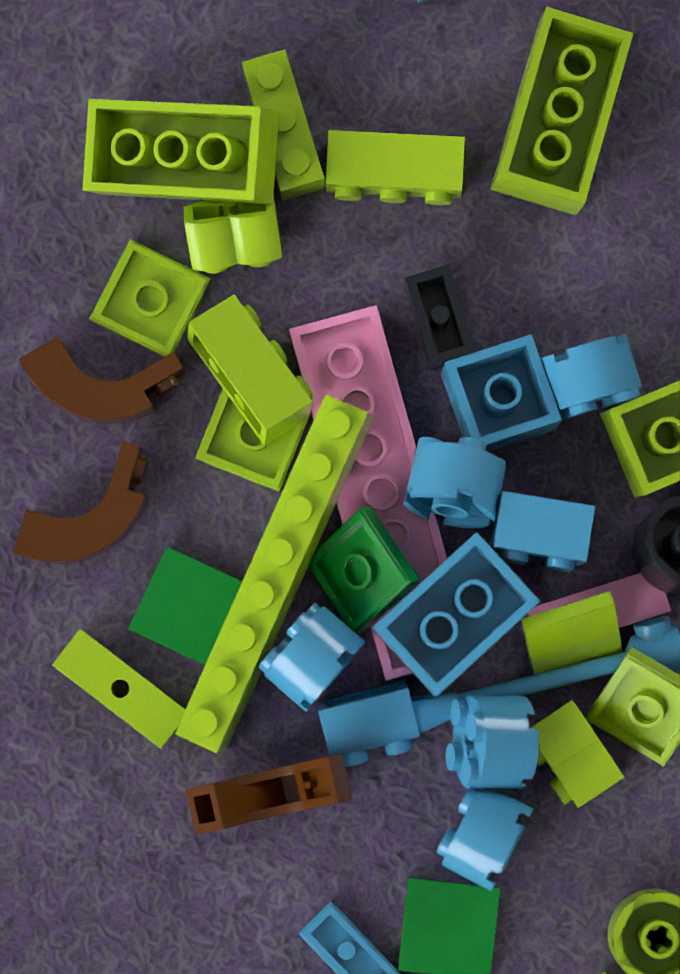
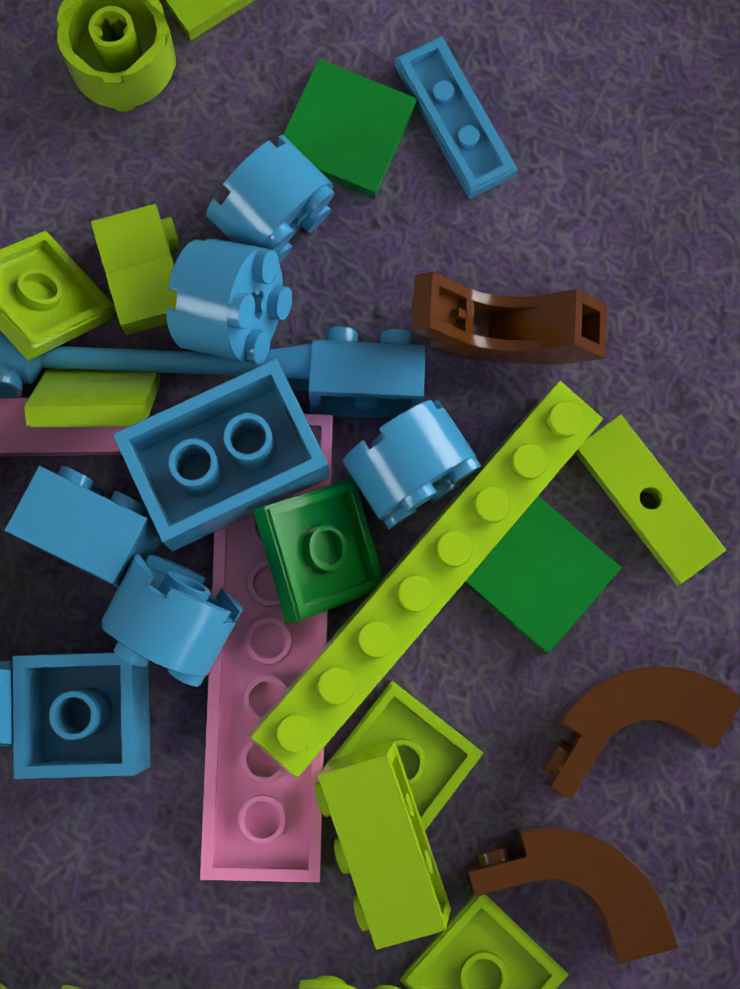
camera: 170 degrees left, 5 degrees down
(438, 316) = (124, 839): black brick -> none

